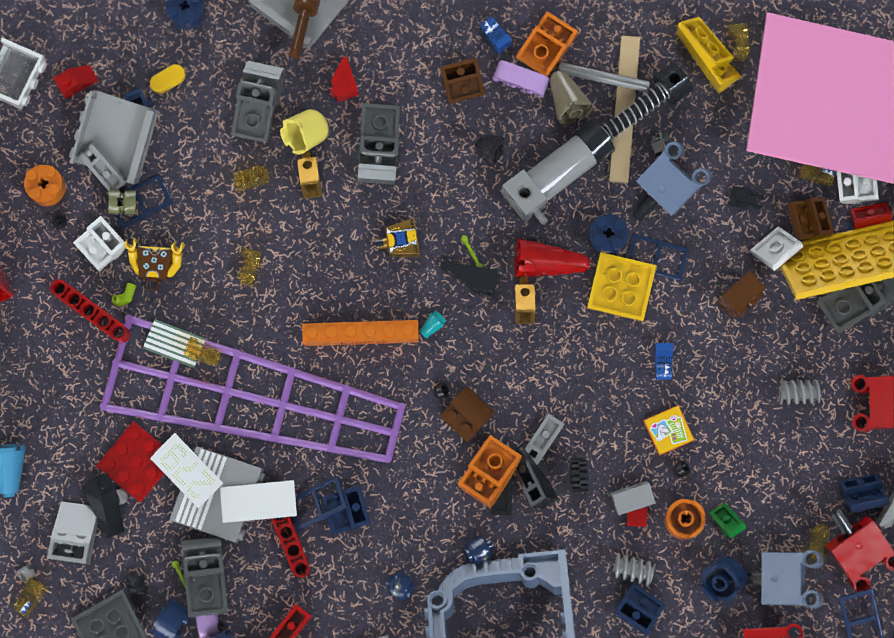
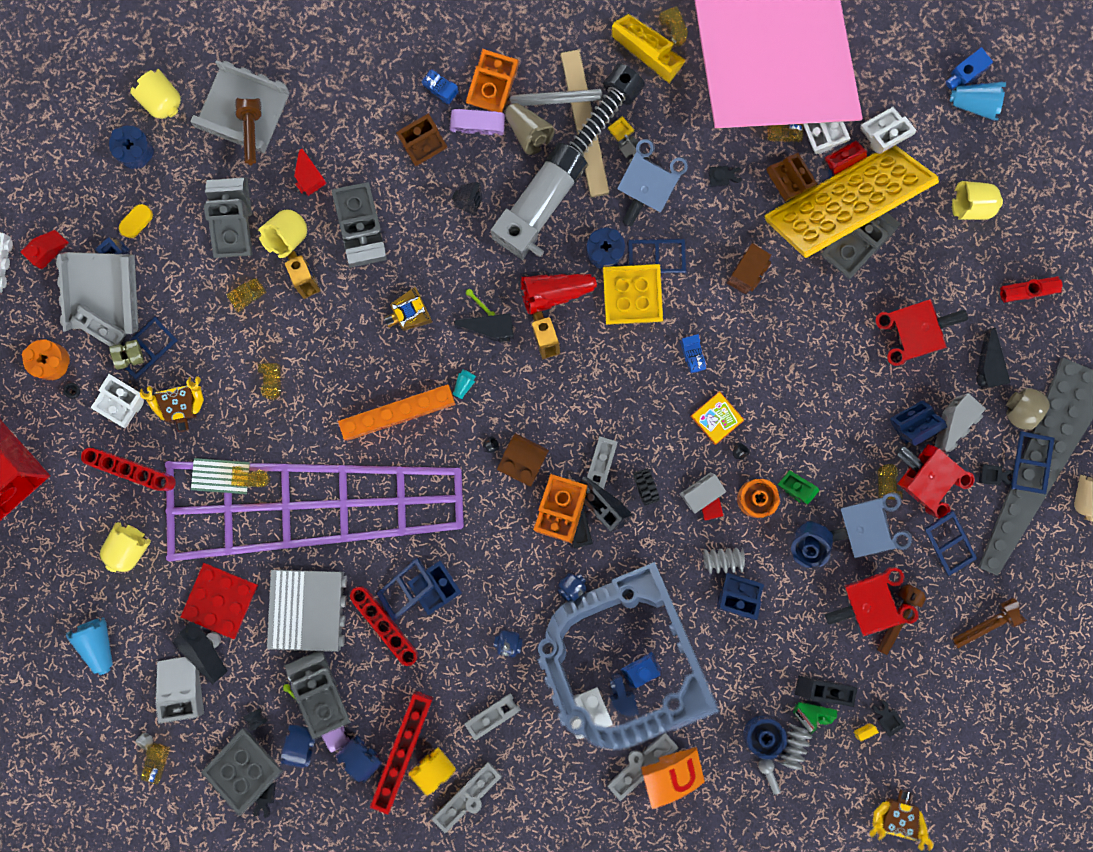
camera: 25 degrees left, 5 degrees up
(63, 384) = (123, 548): none -> light yellow cylinder
(124, 298) = (159, 446): lime arm -> none
(186, 470) = (269, 596): white sticker -> none
(258, 501) = (347, 605): white sticker -> none
(658, 124) = (620, 128): none -> yellow tile
(776, 248) = (768, 214): white tile -> none
(799, 391) = (829, 343): light grey piece -> none

